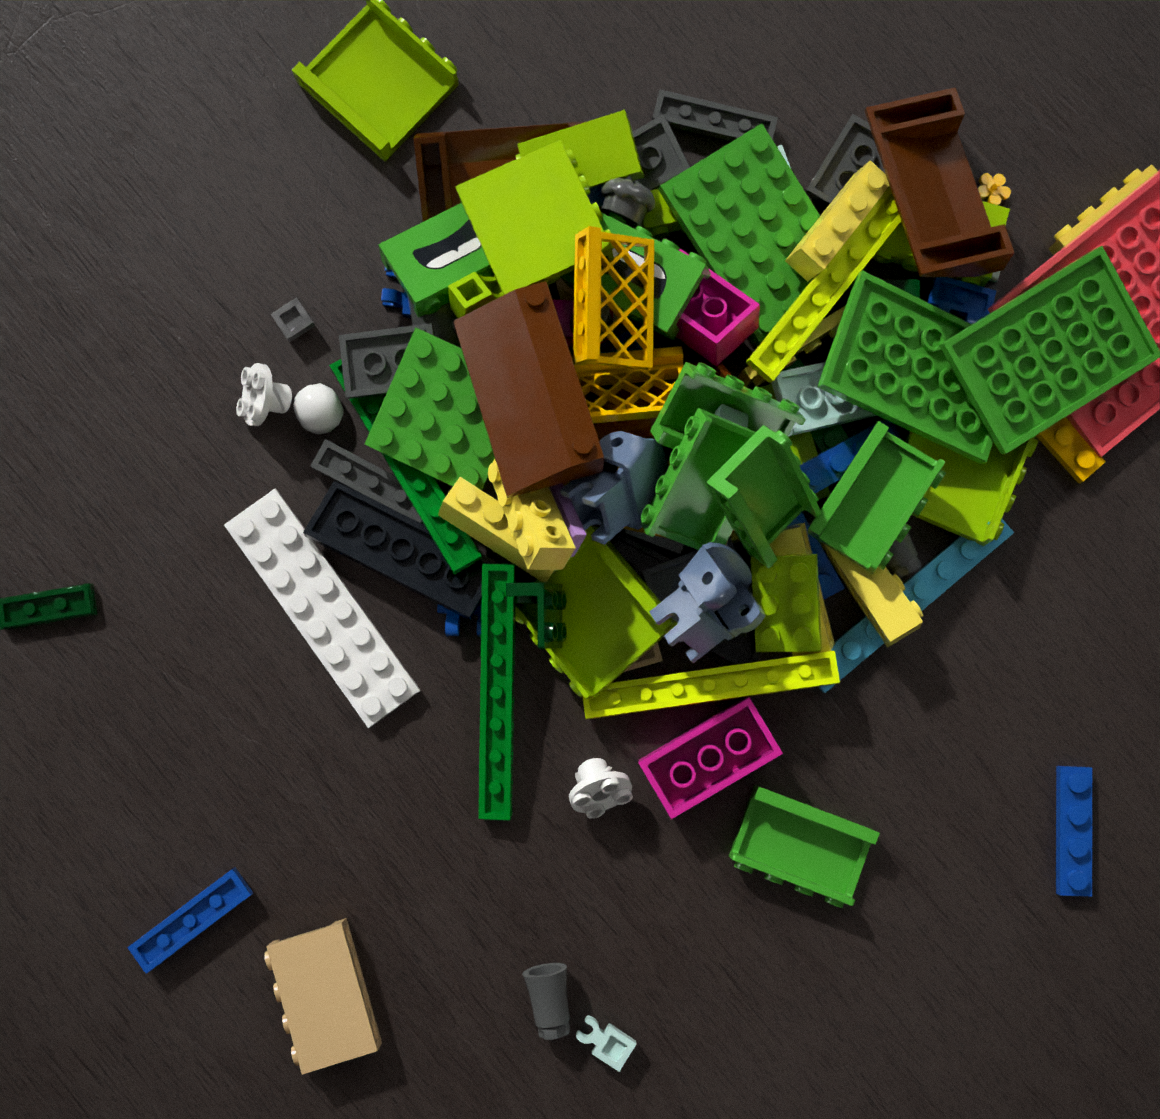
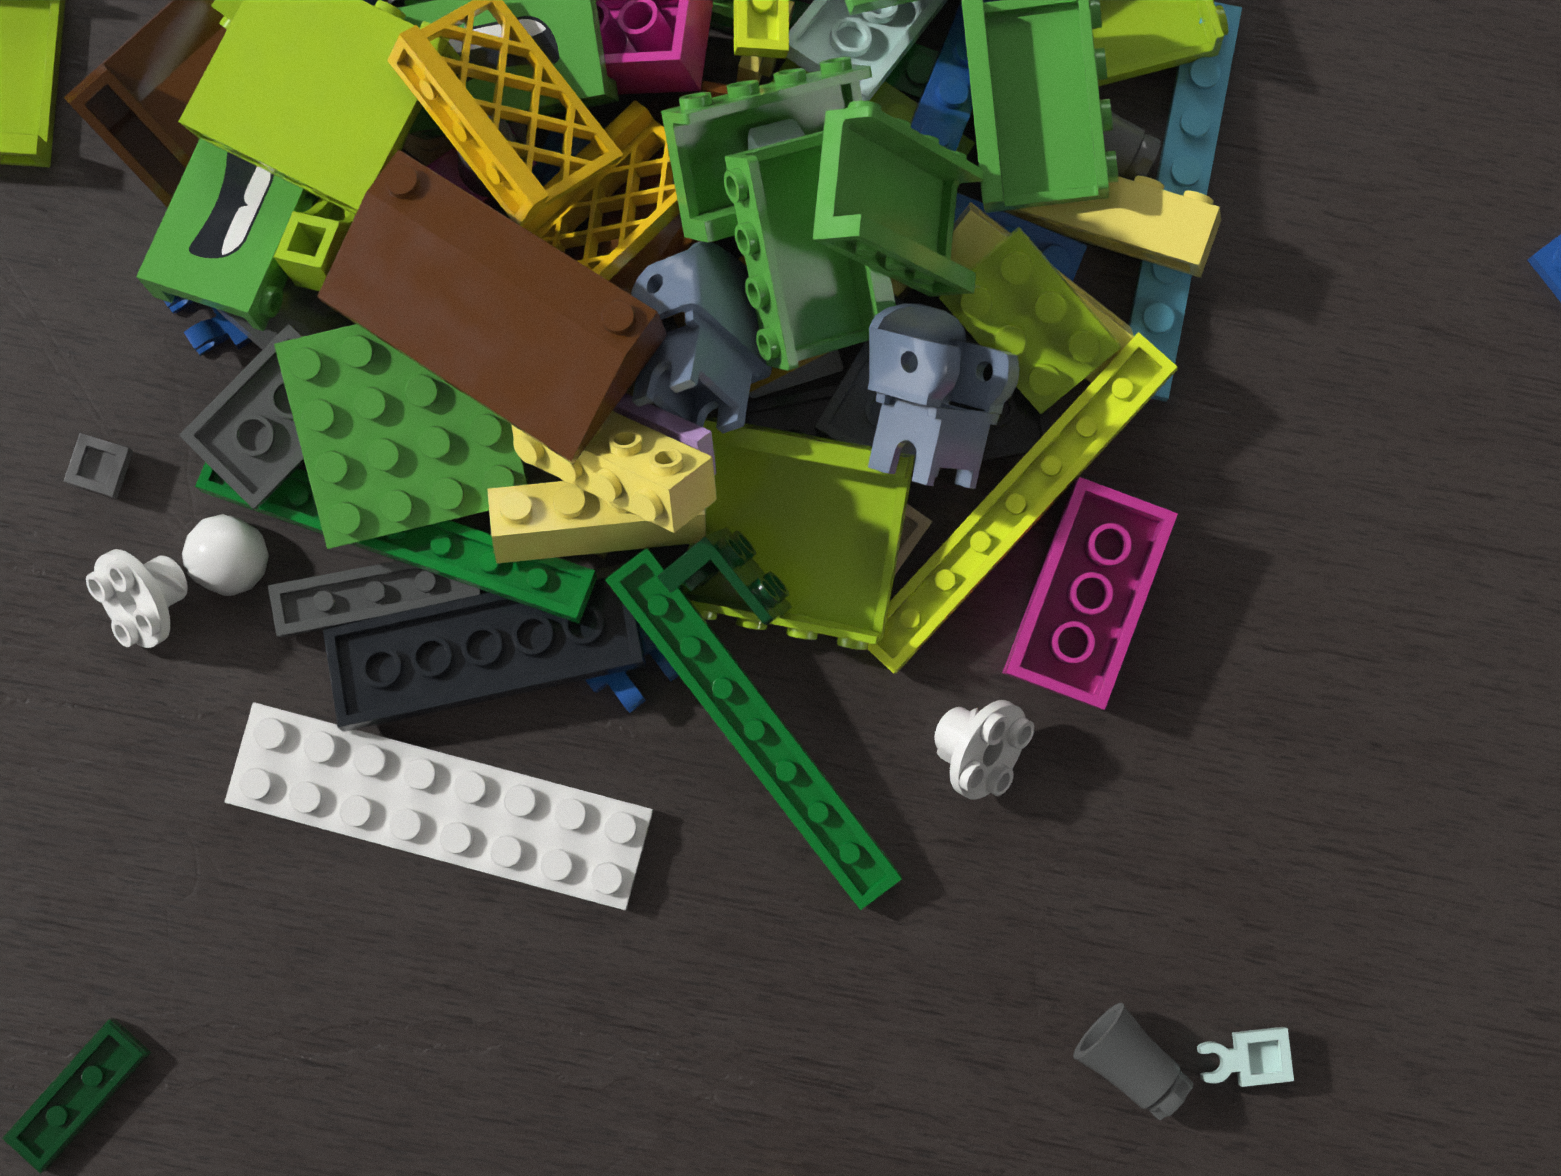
camera: 40 degrees left, 0 degrees up
(801, 846) = (1293, 613): bright green panel -> none

